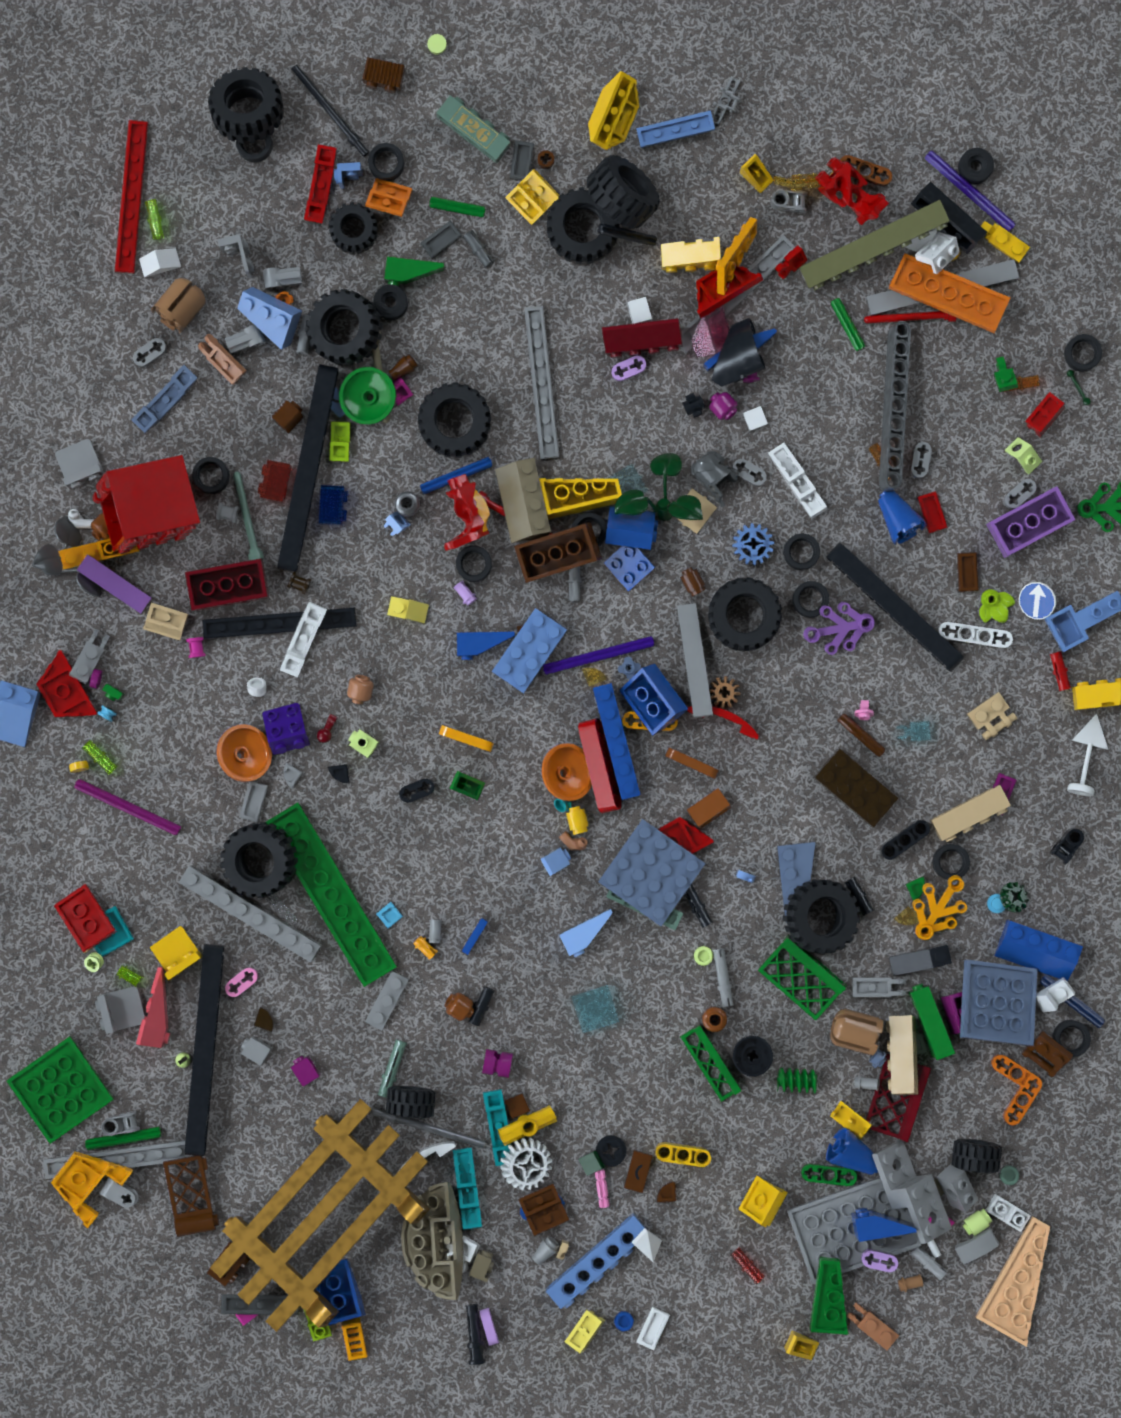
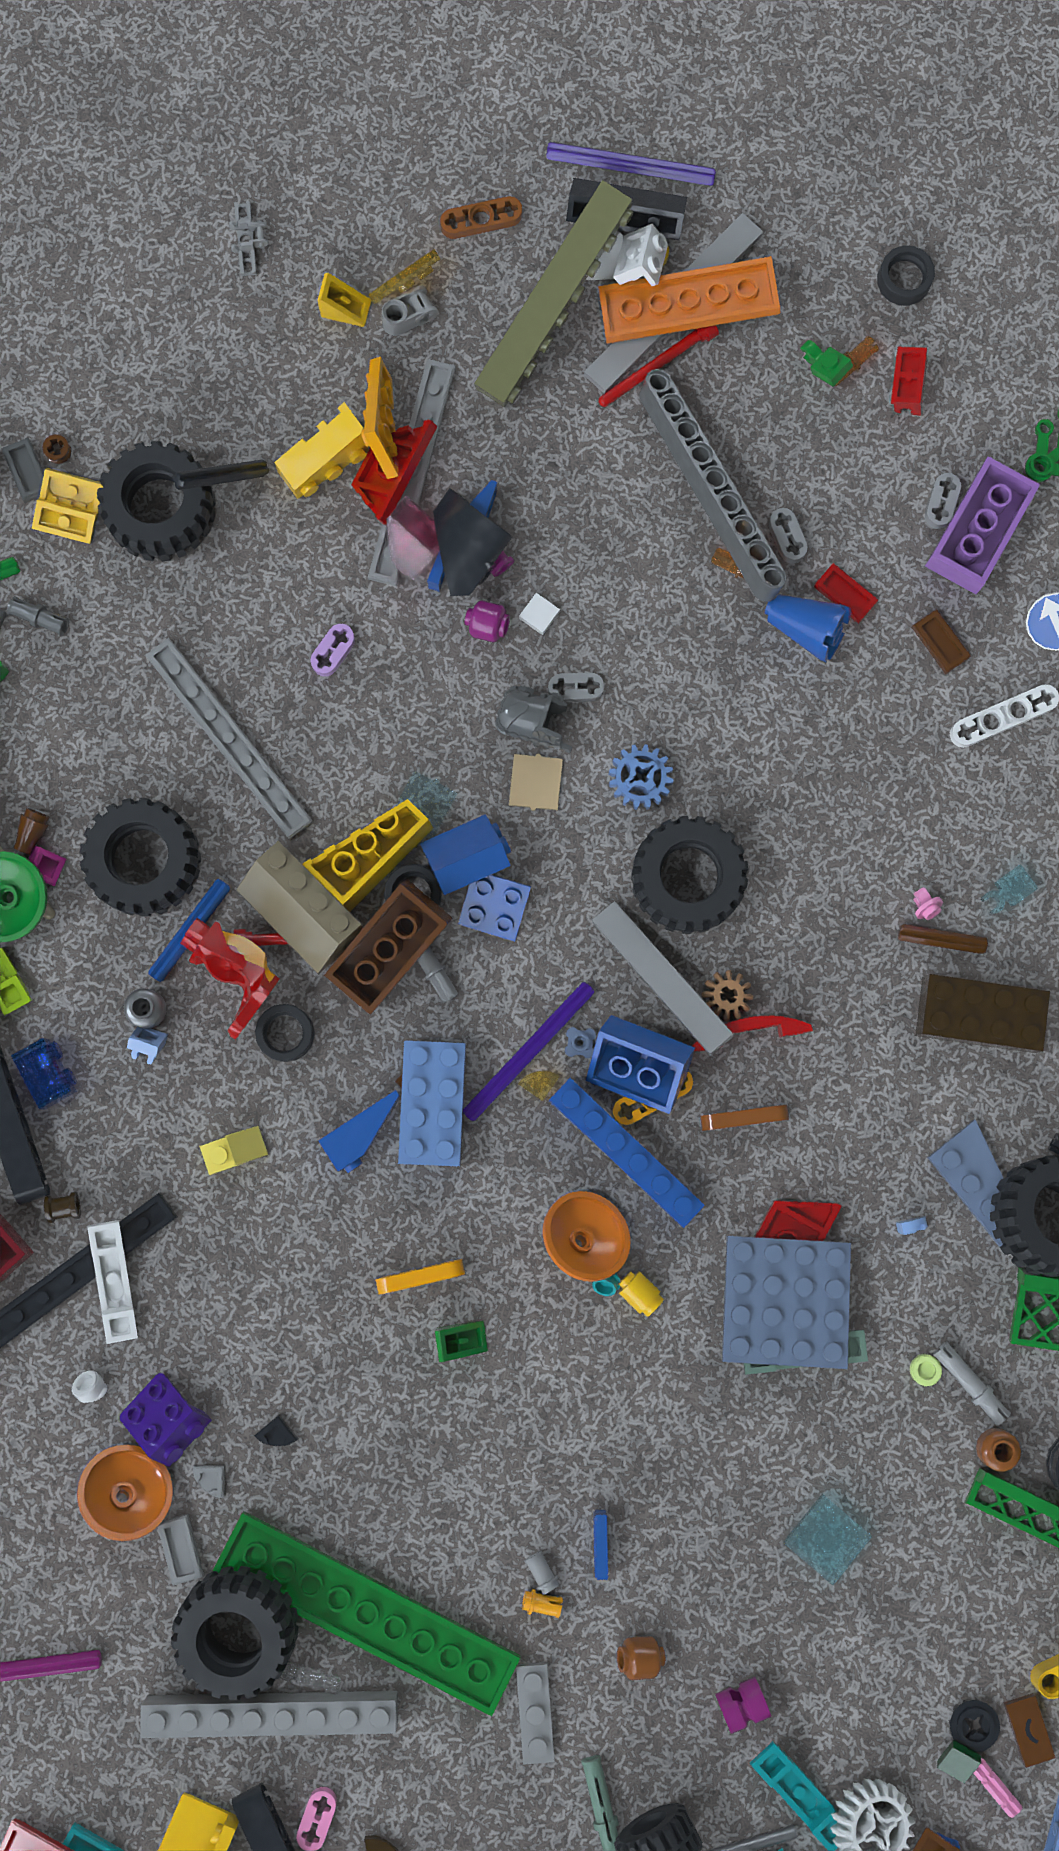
camera: 35 degrees left, 5 degrees down
(324, 734) = (222, 1393): dark red arm -> none
(360, 689) = (233, 1300): nougat head -> none
(370, 744) = (293, 1366): yellowish green brick -> none
(389, 915) = (465, 1589): medium azure tile -> none
(418, 795) = (390, 1386): black beam -> none
(465, 593) = (299, 1080): lavender pin -> none
(481, 1006) = (670, 1636): black pin -> none
(517, 1105) = (806, 1745): reddish brown tile -> none
(538, 1121) = (848, 1751): yellow piece -> none
(556, 861) = (646, 1369): light blue slope -> none
(573, 843) = (654, 1328): nougat arm -> none
(580, 936) = (745, 1449): light blue slope -> none
(599, 765) = (624, 1199): beam -> none
(614, 112) = (108, 331): yellow wedge -> none
(623, 191) = (180, 420): black tyre -> none
(639, 311) = (301, 568): white brick -> none
(642, 337) = (325, 595): dark red slope -> none
(675, 129) = (203, 309): medium blue plate -> none
(686, 506) = (522, 780): dark green plant -> none
(692, 581) = (592, 874): reddish brown brick -> none
(693, 405) = (448, 644): black gear -> none
(697, 907) = (878, 1309): black pin -> none
(709, 808) = (806, 1164): dark orange hinge -> none
(793, 261) = (461, 385): red plate -> none
(796, 598) = (762, 779): black tyre -> none
(797, 480) = (646, 659): white slope -> none
(804, 537) = (726, 731): black tyre -> none
(841, 629) = (827, 814): medium lavender plant -> none
(847, 324) = (582, 421): green axle -> none
(866, 205) = (457, 241): red hips -> none
(895, 606) = (878, 742): black beam -> none
(983, 158) = (618, 111): black tyre -> none
(997, 608) = (1009, 663): lime plate -> none
(1005, 241) = (717, 198): yellow hinge -> none
(1026, 455) = (919, 446): yellowish green bracket -> none
(1086, 401) = (948, 334): dark green hinge -> none

